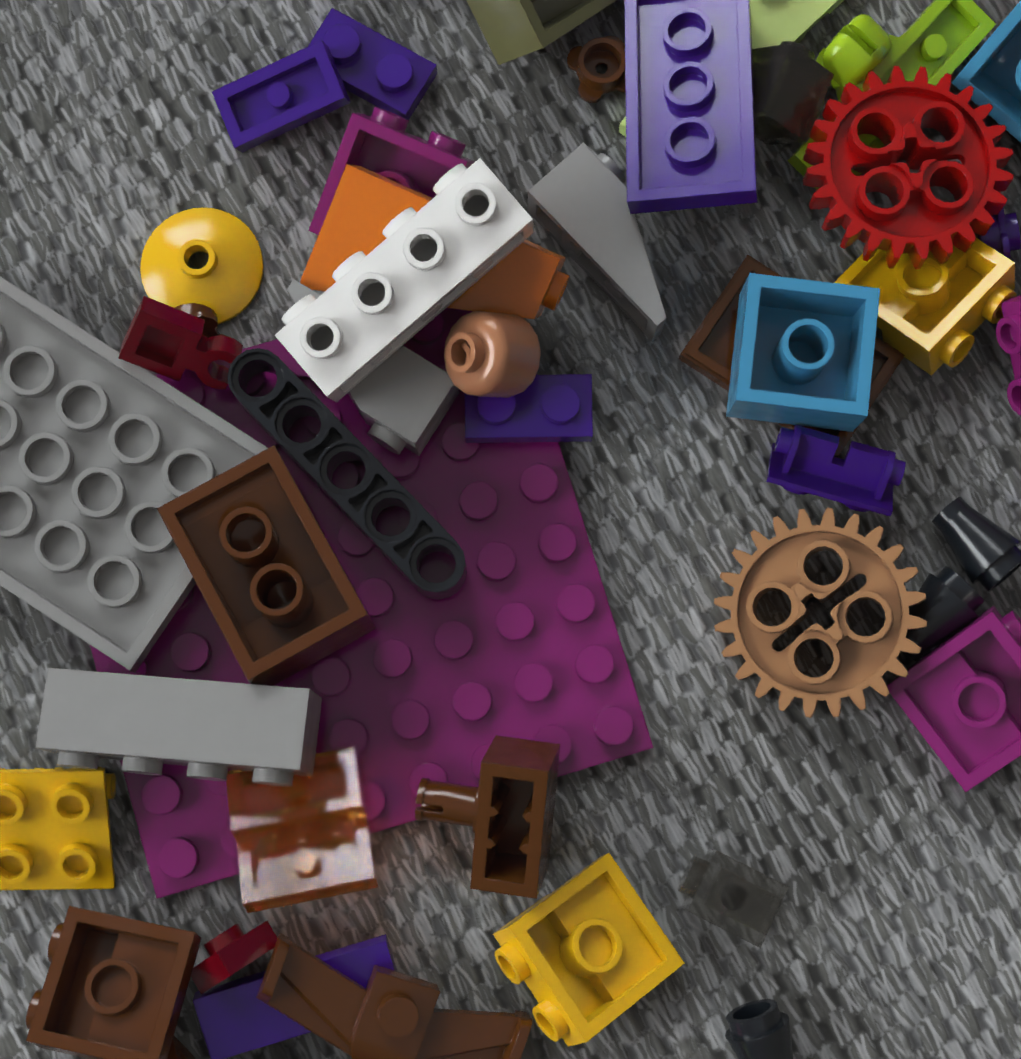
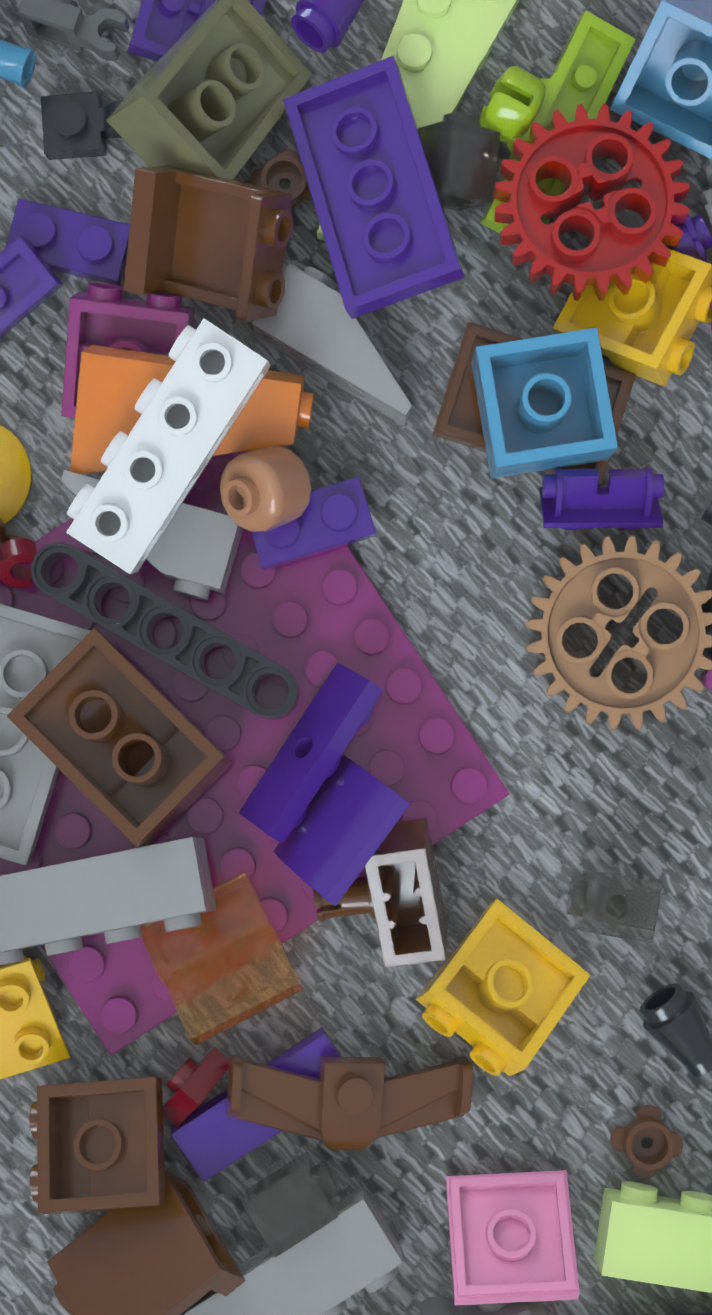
camera: 15 degrees left, 5 degrees up
(459, 641) = (311, 752): none -> dark purple tile
(466, 728) = (341, 830): none -> dark purple slope
(508, 94) = (208, 240): none -> reddish brown panel

